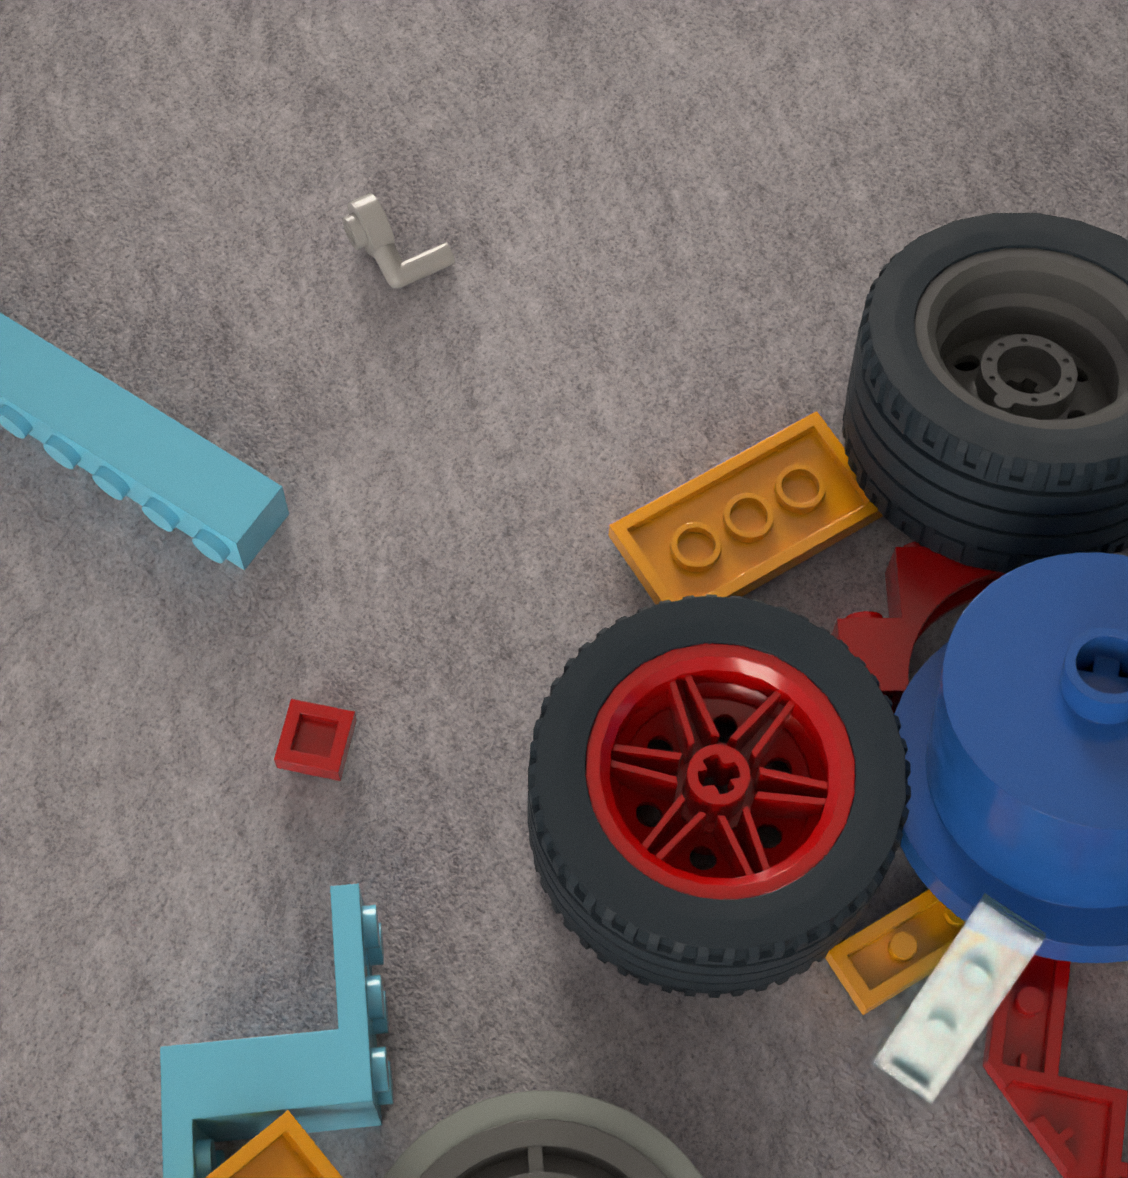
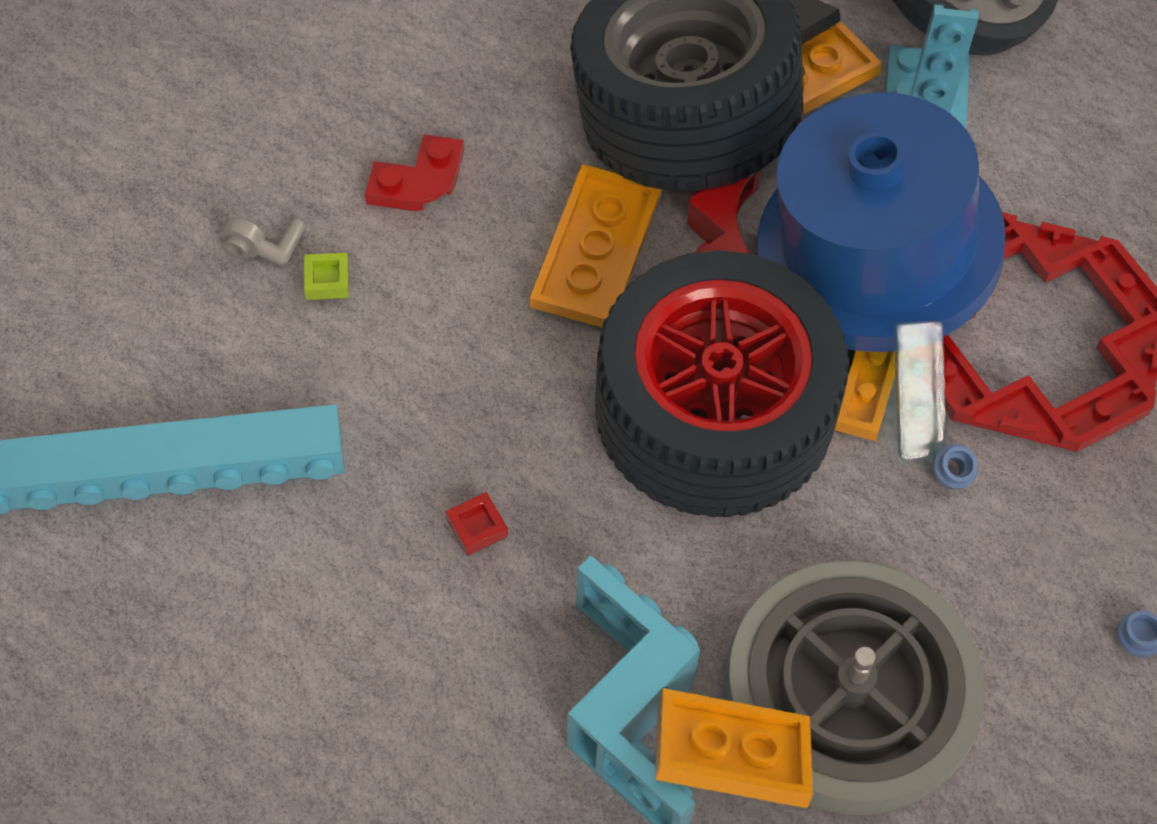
camera: 40 degrees left, 5 degrees down
(419, 333) = (326, 276): none -> lime plate
(633, 305) = (412, 187): none -> red plate
(933, 1149) = (963, 457): none -> medium blue plate

